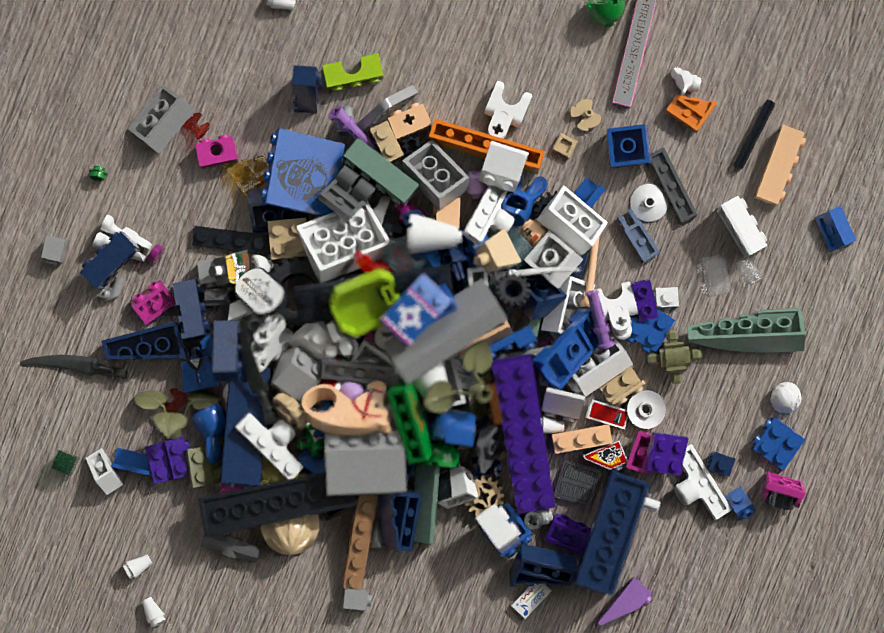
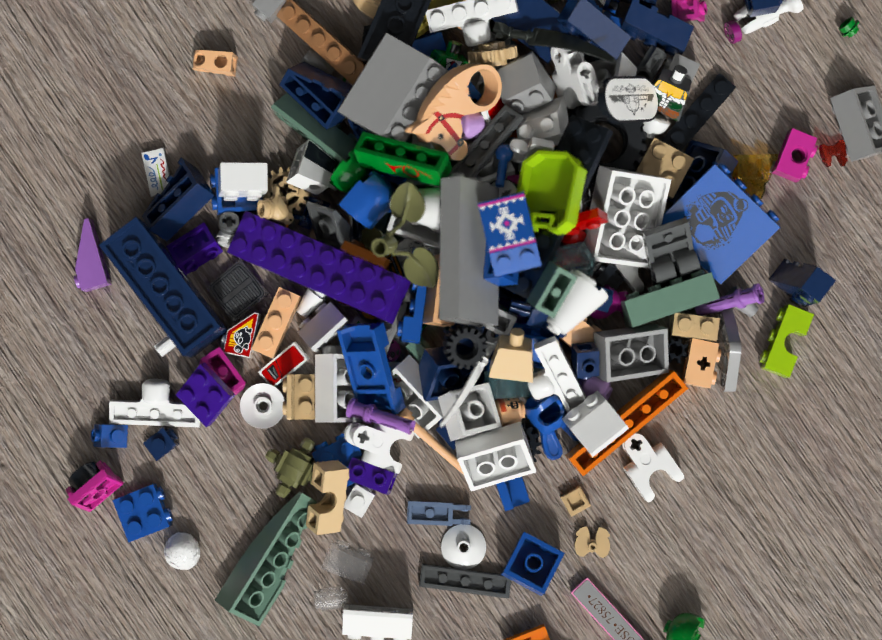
camera: 120 degrees right, 0 degrees up
(358, 354) = (504, 155): none -> blue bar
(424, 610) = (215, 62): none -> light nougat leg
(433, 256) = (552, 289): none -> sand green brick
(463, 203) = (585, 360): none -> dark blue brick
(502, 493) = (275, 209): none -> tan animal
(666, 323) = (327, 515): none -> tan arch

